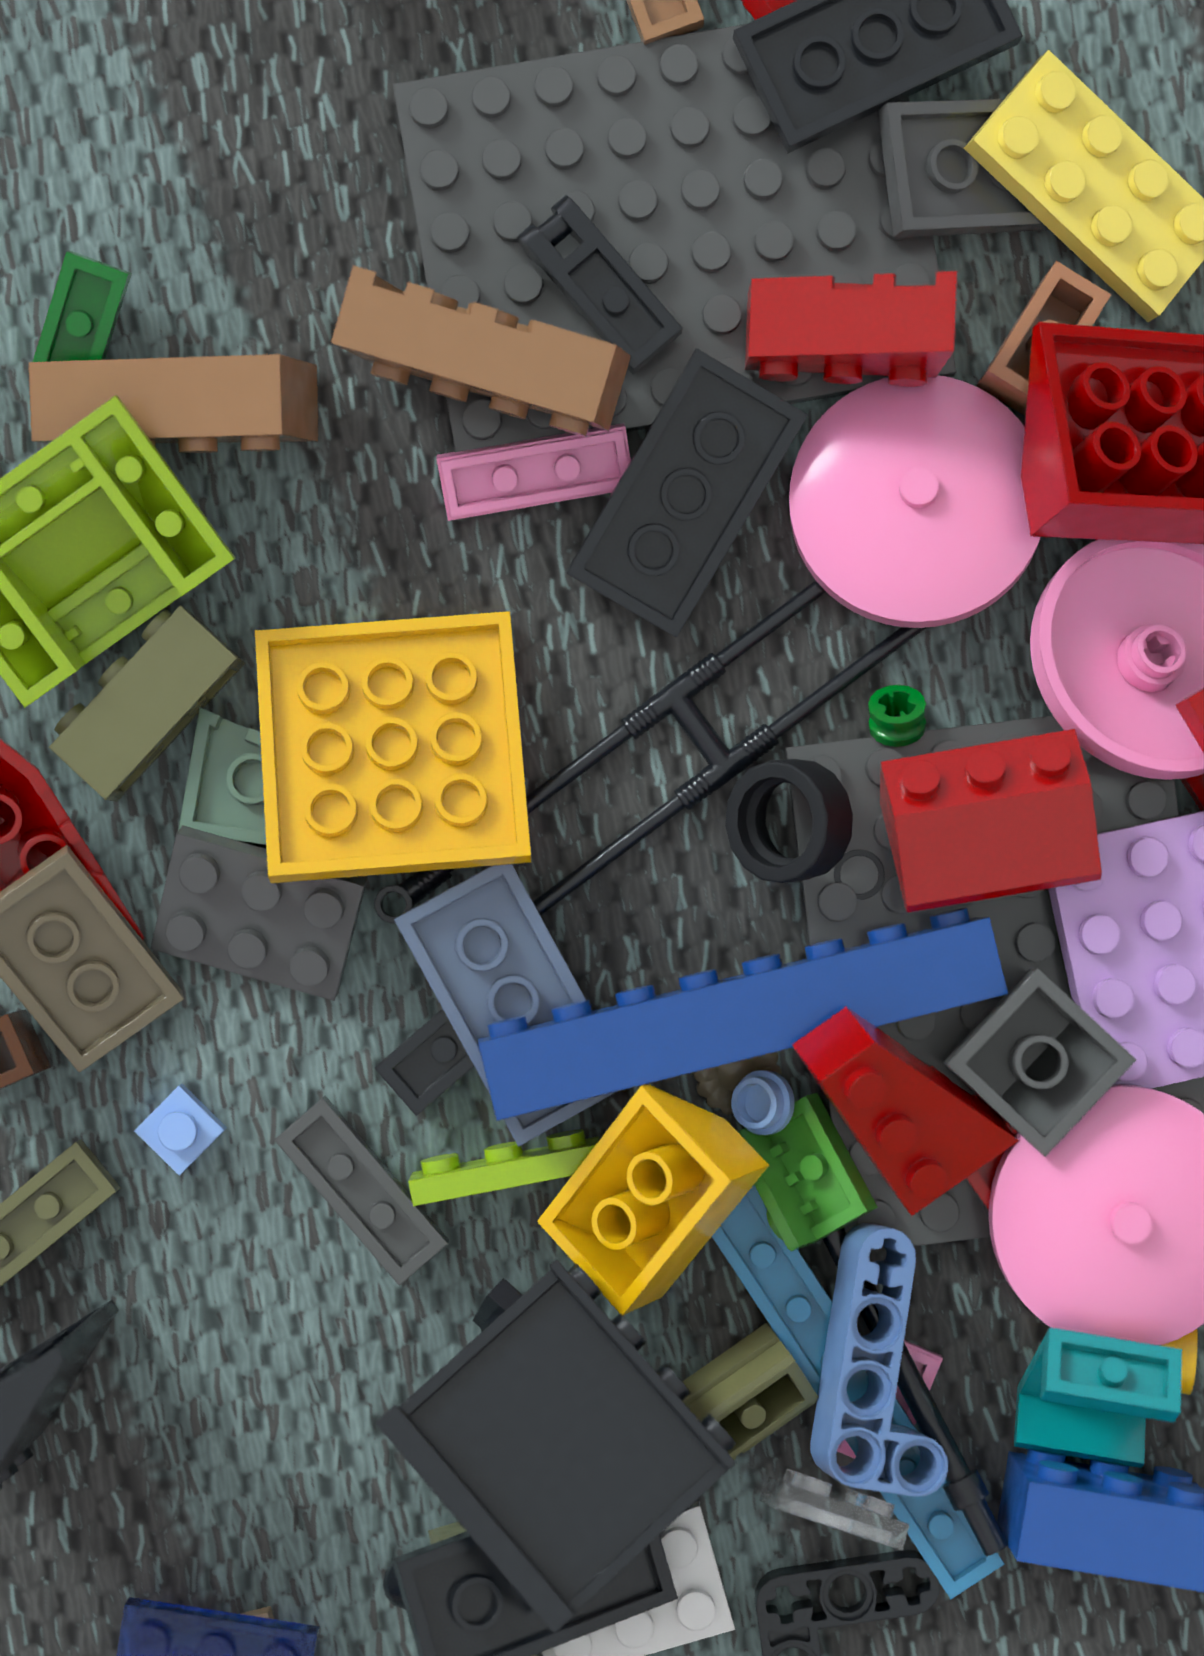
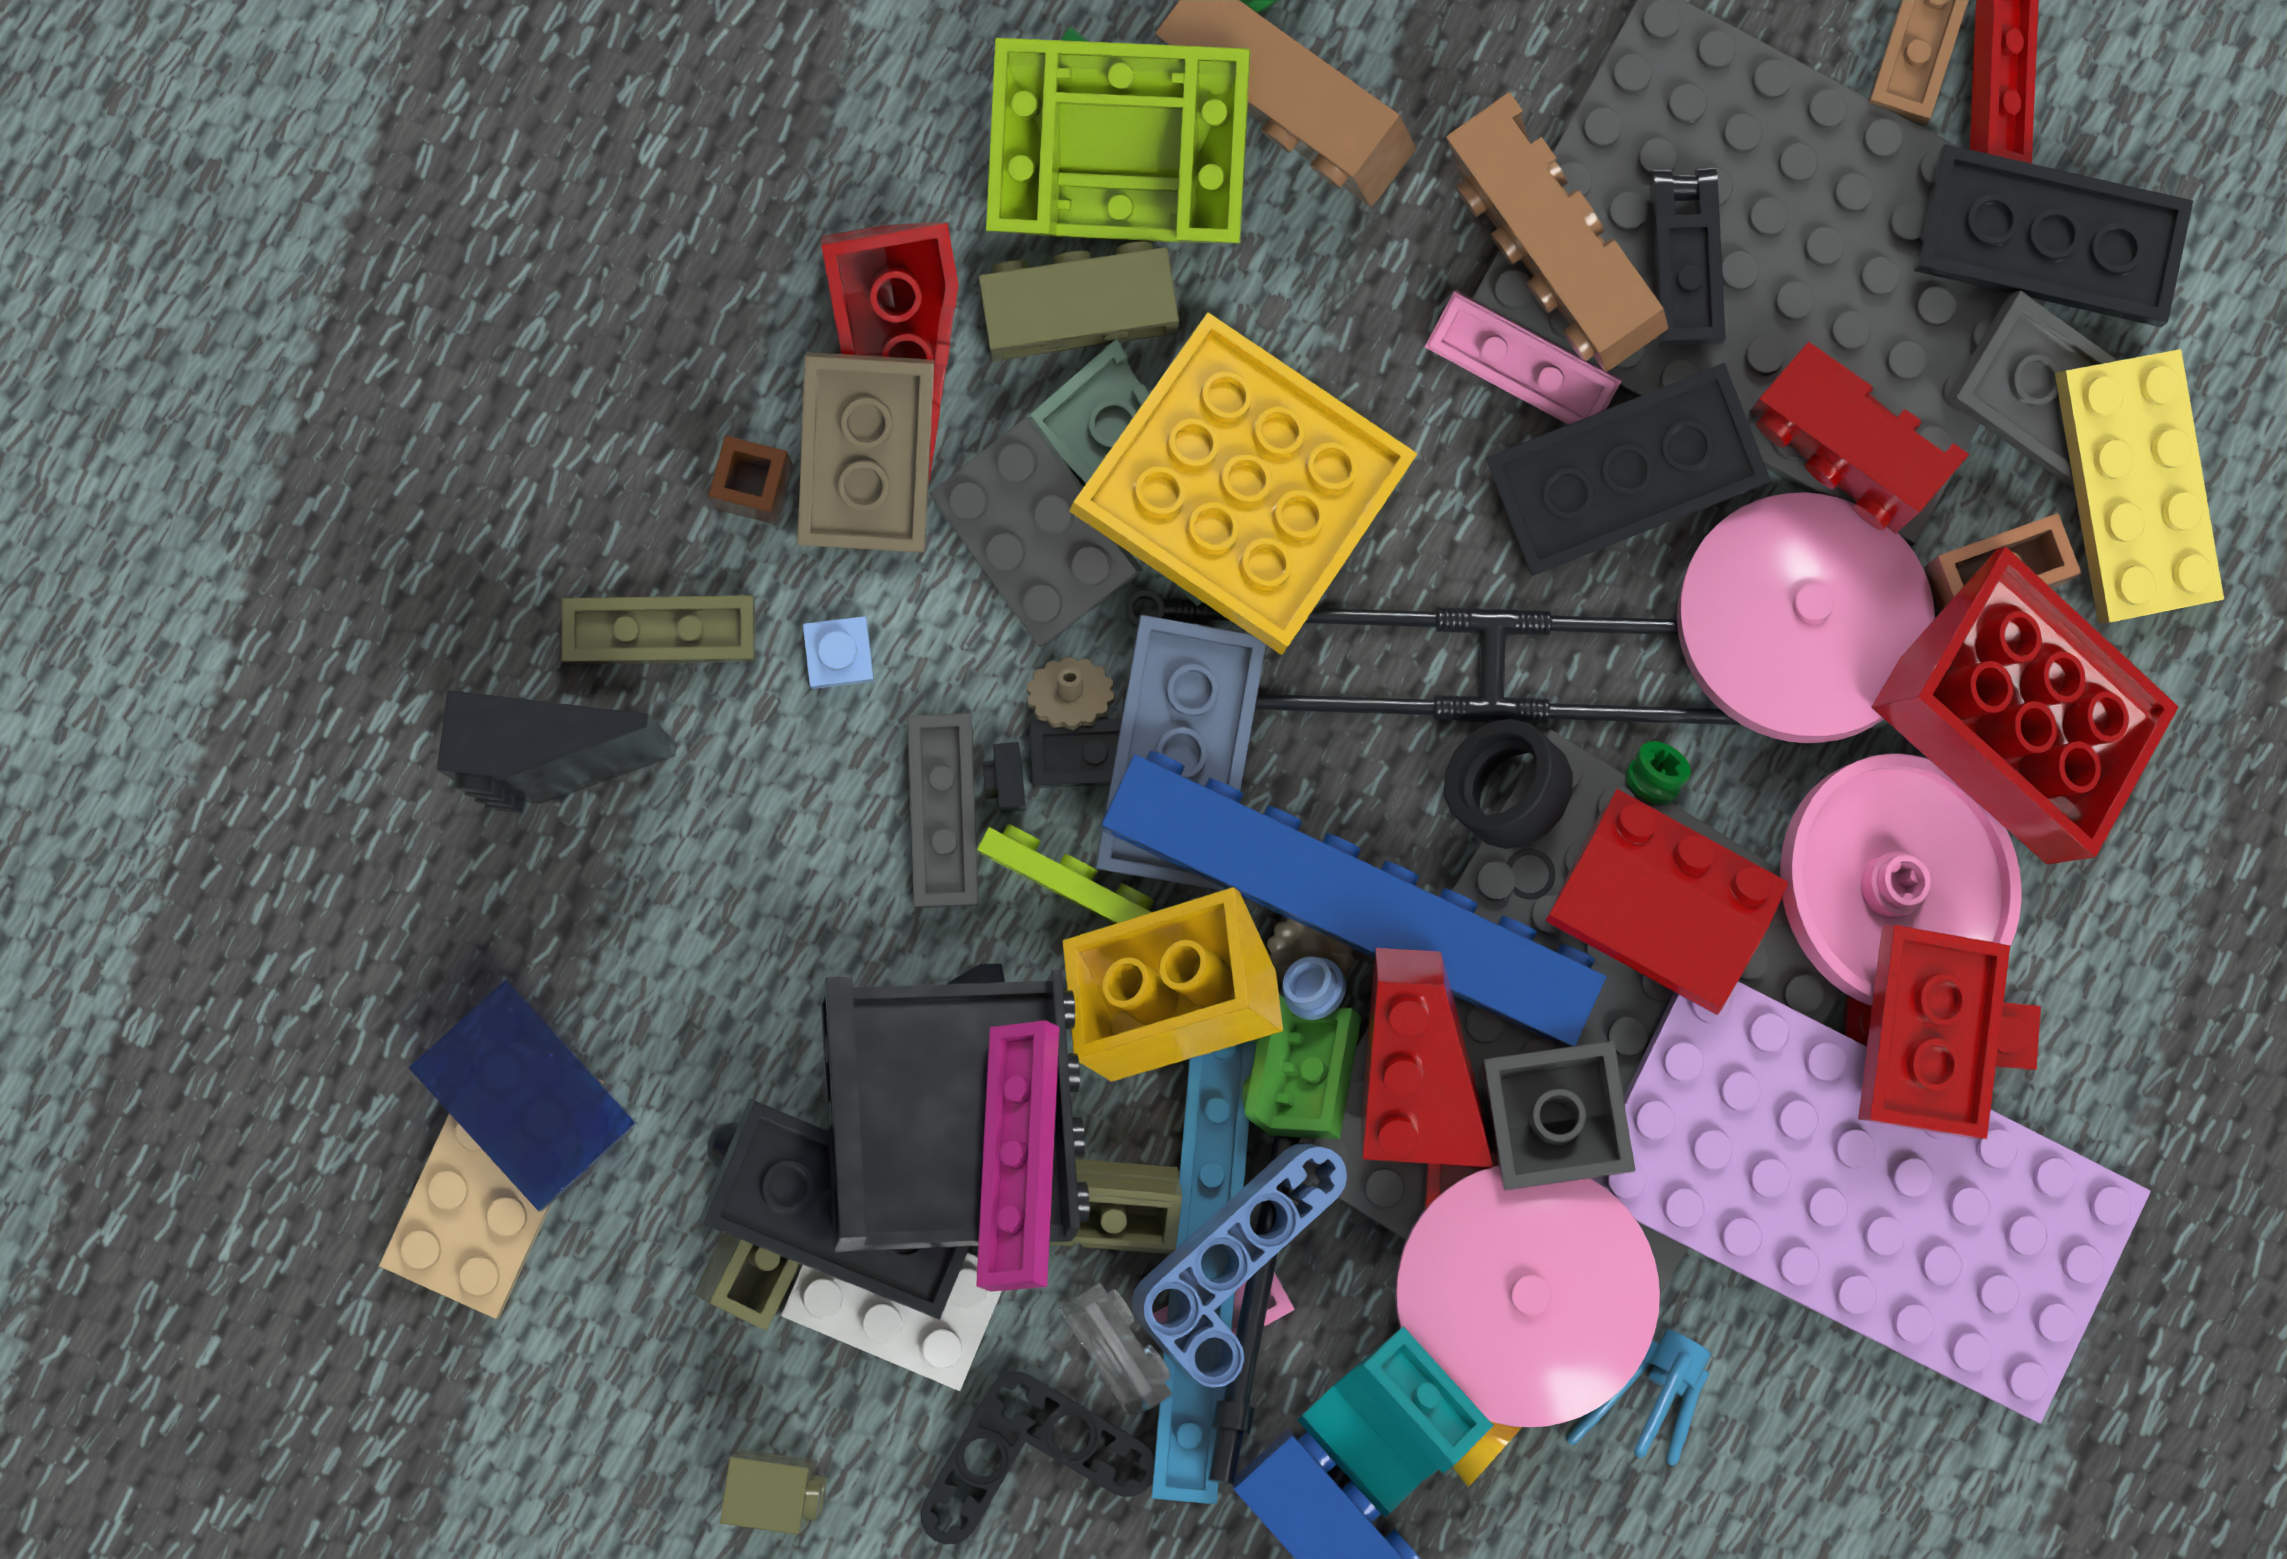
camera: 35 degrees right, 5 degrees down
(387, 1018) = (1070, 693): none -> dark tan piece
(390, 1126) = (1005, 778): none -> black plate
(642, 1443) = (1018, 1156): none -> dark pink plate

